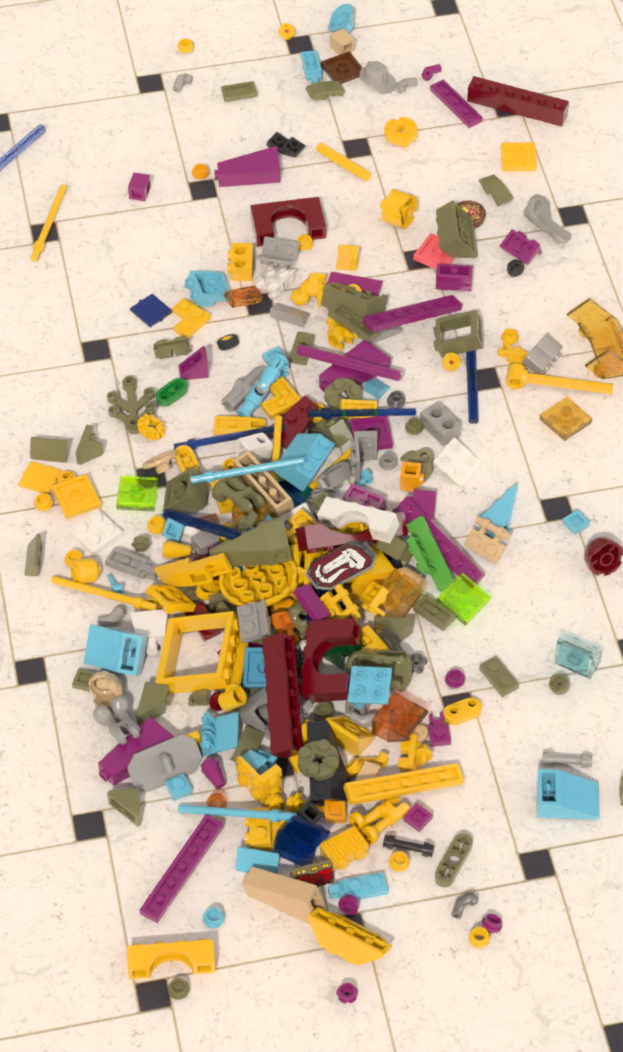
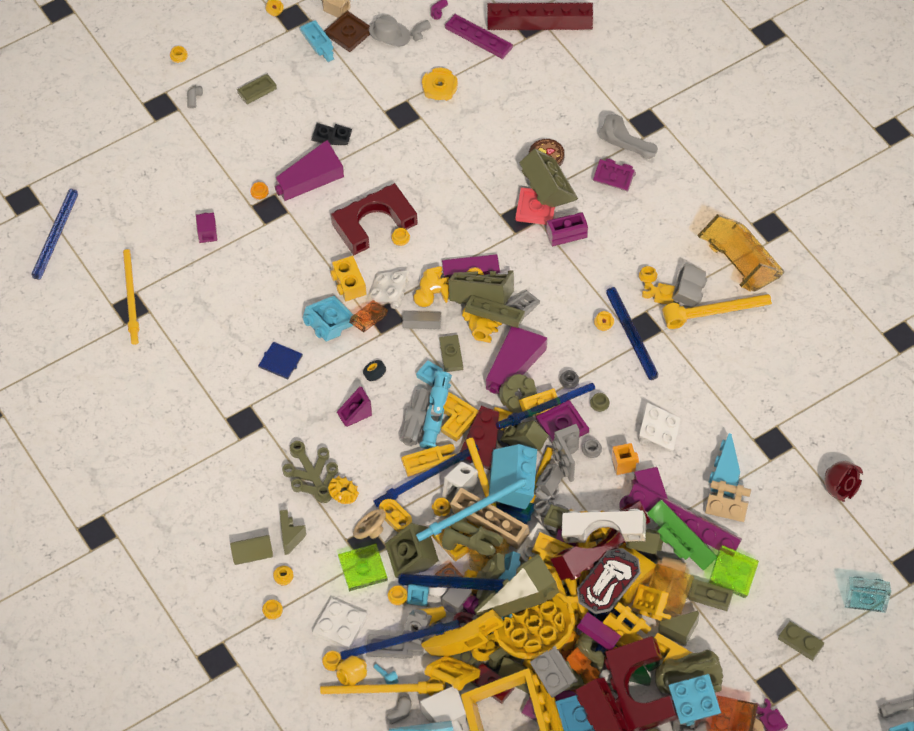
camera: 20 degrees left, 5 degrees up
(33, 556) = (290, 672): slope -> none
(39, 477) = (254, 583): yellow piece -> none
(76, 496) = (303, 591): yellow plate -> none
(140, 543) = (392, 621): olive plate -> none
(157, 551) = (420, 619): none -> light grey brick
(169, 393) = (345, 446): green plate -> none
(171, 556) = (438, 629): none -> clear blue bar
(179, 345) = (328, 391): olive hinge -> none
(192, 318) = (326, 353): yellow plate -> none
(279, 251) = (382, 256): light grey bracket -> none
(320, 90) = (340, 62): olive slope -> none
(343, 161) = (398, 135): yellow axle -> none
(347, 257) = (451, 240): yellow panel -> none
(350, 363) = (511, 356): magenta axle -> none
(364, 497) = (591, 498): magenta hinge -> none
(366, 477) = (579, 473): medium azure hand -> none
(376, 388) = (543, 372): medium azure slope -> none
(390, 639) = (685, 640): clear smoke plate -> none
(398, 208) = (479, 171): yellow brick -> none
(412, 313) = (546, 282): magenta plate -> none
(415, 457) = (615, 437): olive plate -> none
(418, 658) = (721, 650): flat silver plate -> none
(440, 424) = (622, 394): light grey brick -> none
(455, 678) = (761, 658): magenta plate -> none
(461, 344) = (606, 301): olive window -> none
(463, 711) = (784, 688): yellow plate -> none
(497, 189) = (559, 116): olive slope -> none
(515, 268) = (619, 199): black plate -> none
(518, 156) = (566, 76): yellow plate -> none
(559, 684) = (862, 629): olive tile -> none
(565, 418) = (740, 345): clear yellow plate -> none
(576, 522) = (800, 452): medium azure plate -> none

